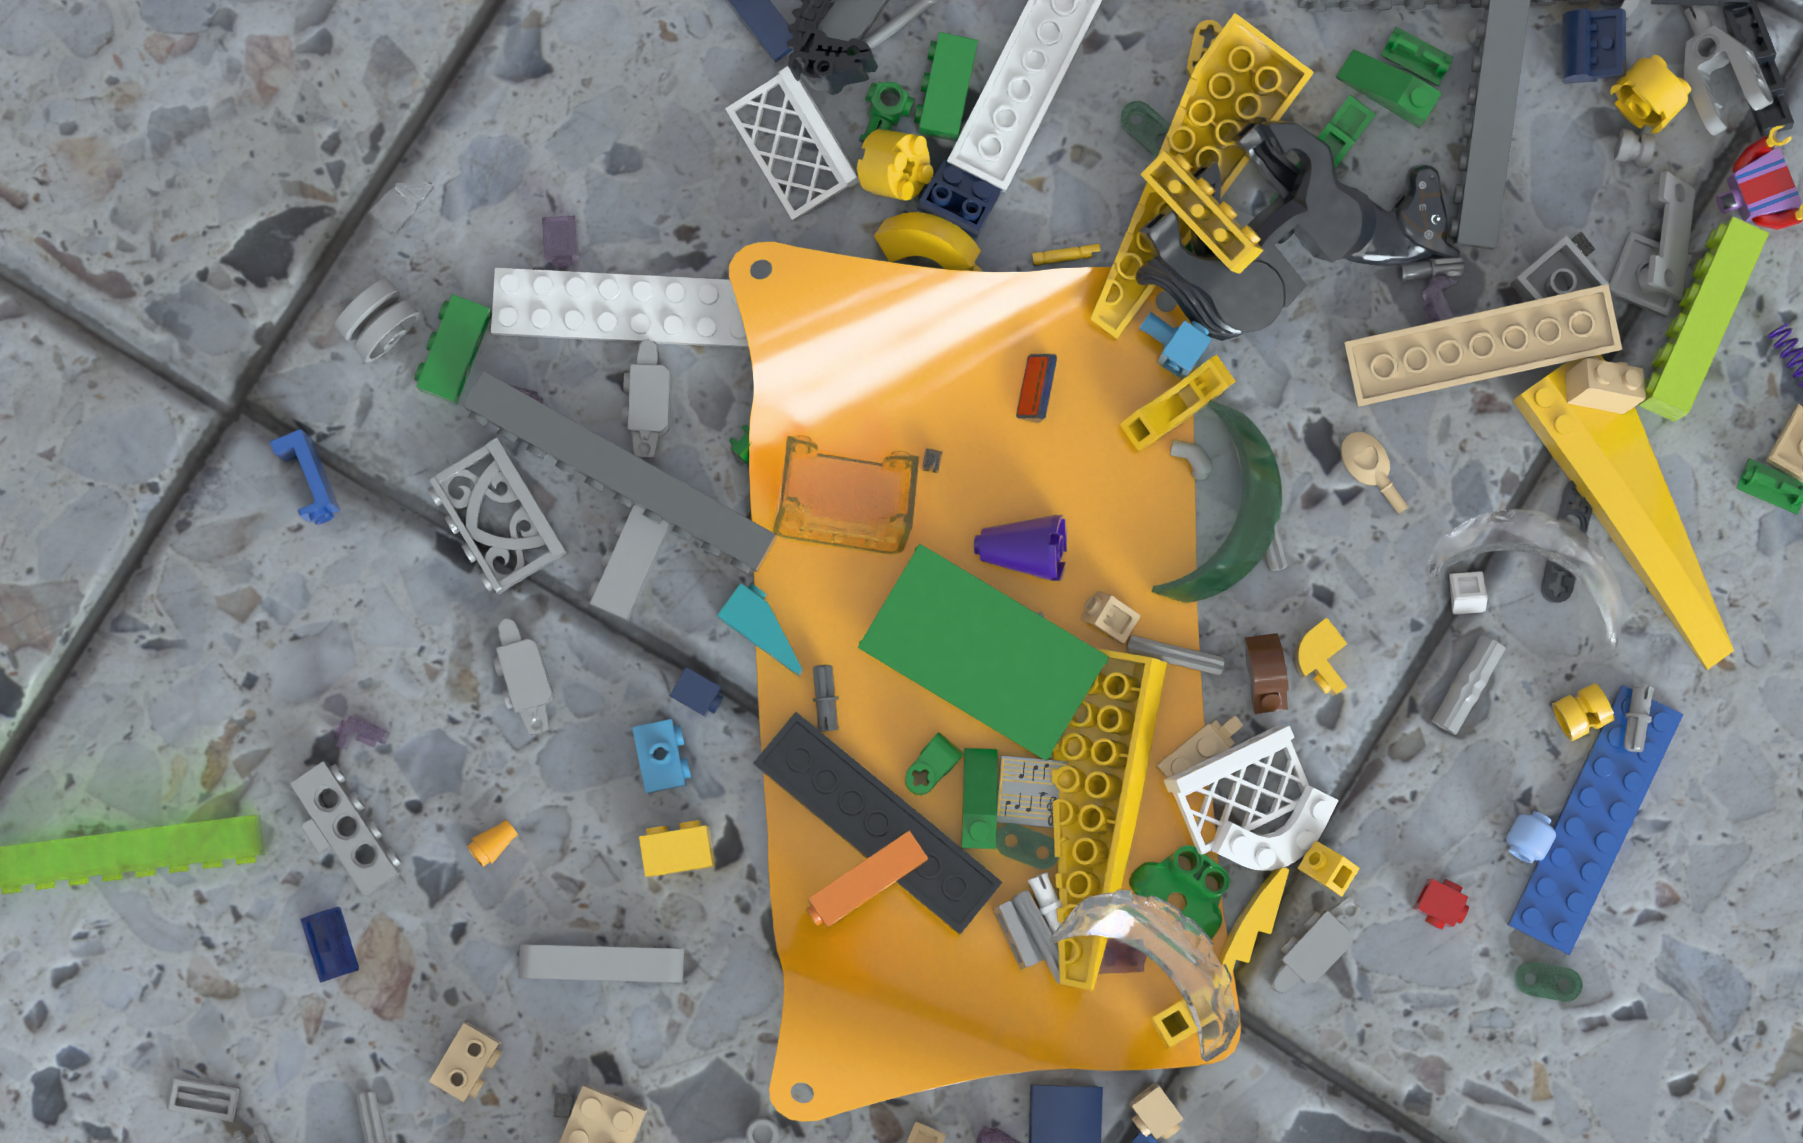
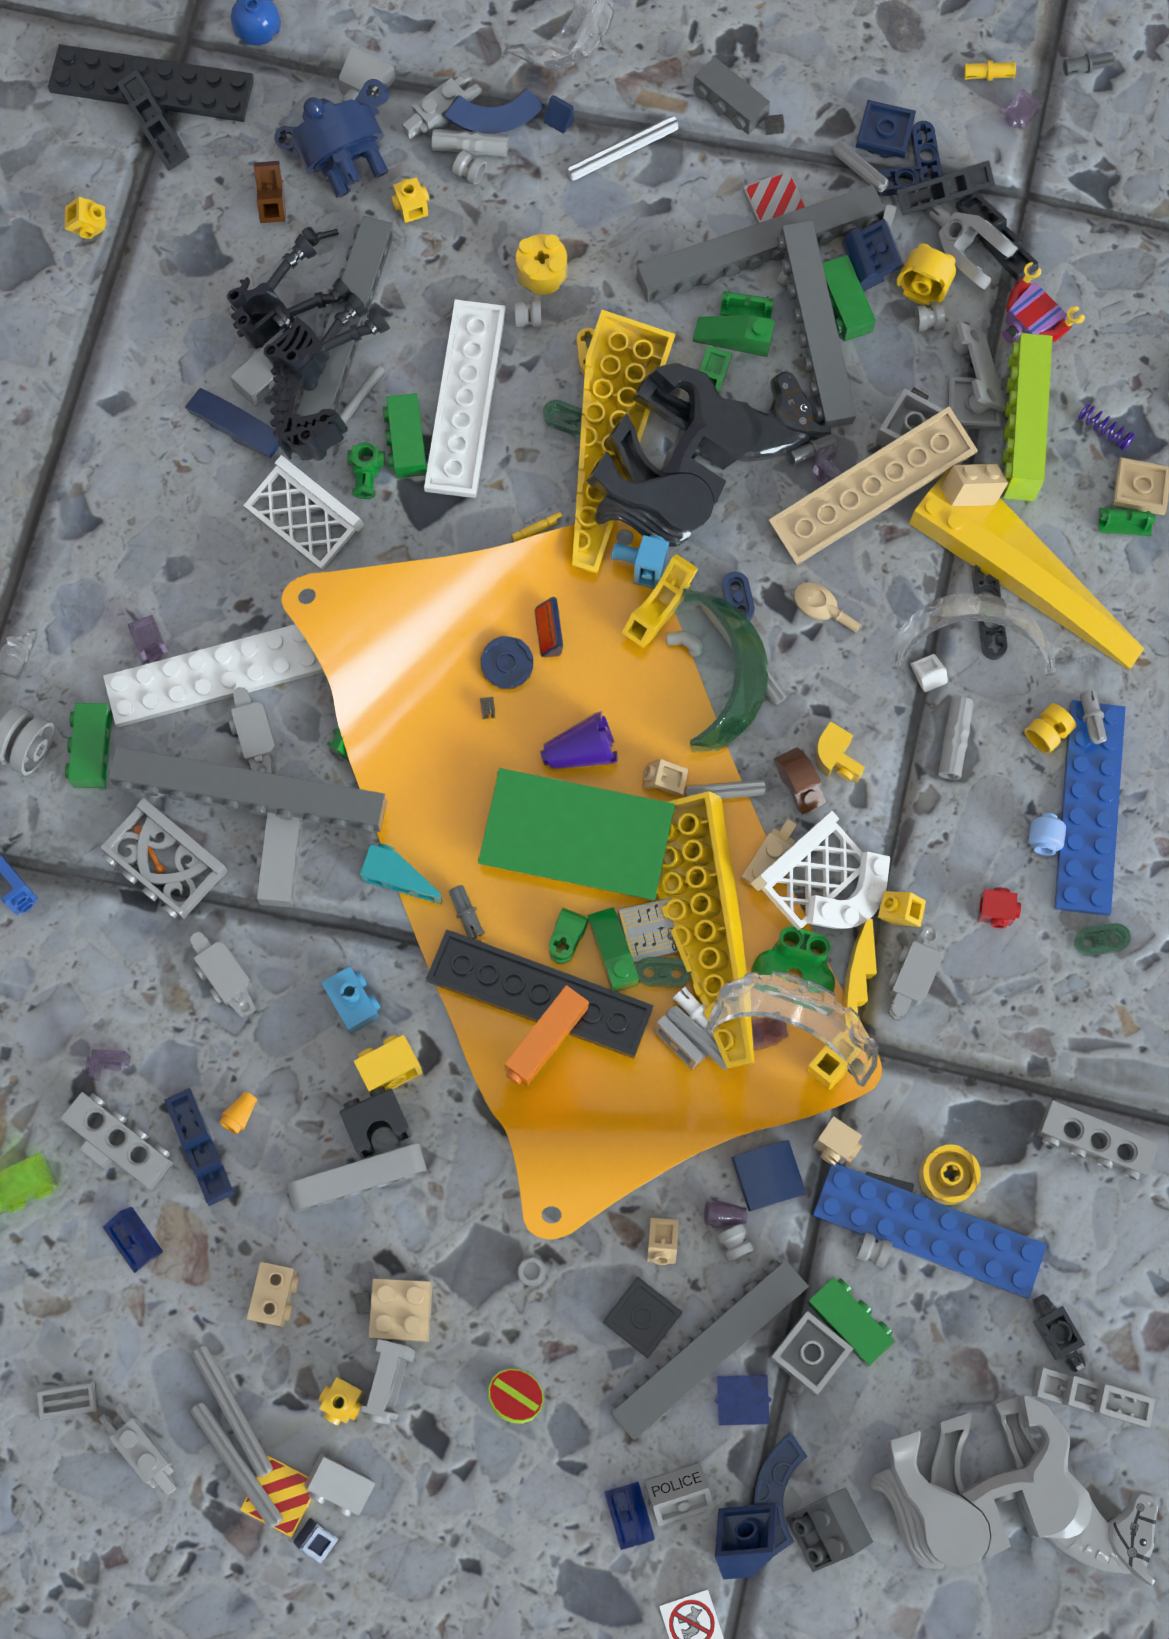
camera: 15 degrees left, 10 degrees down
(435, 865) = (199, 1147): none -> dark blue slope
(489, 524) = (159, 868): none -> orange hinge
(627, 901) = (371, 1114): none -> black piece
(697, 693) = (364, 941): dark blue brick -> none
(845, 498) = (431, 757): clear yellow windscreen -> none
(894, 164) = (385, 499): yellow brick -> none
(928, 237) = (427, 543): yellow arch -> none
(959, 198) = (442, 512): dark blue brick -> none
(973, 412) = (506, 662): none -> dark blue tile
(1202, 212) = (628, 447): yellow brick -> none
(1279, 425) = (741, 598): none -> dark blue plate
(1542, 89) = (848, 299): none -> green brick

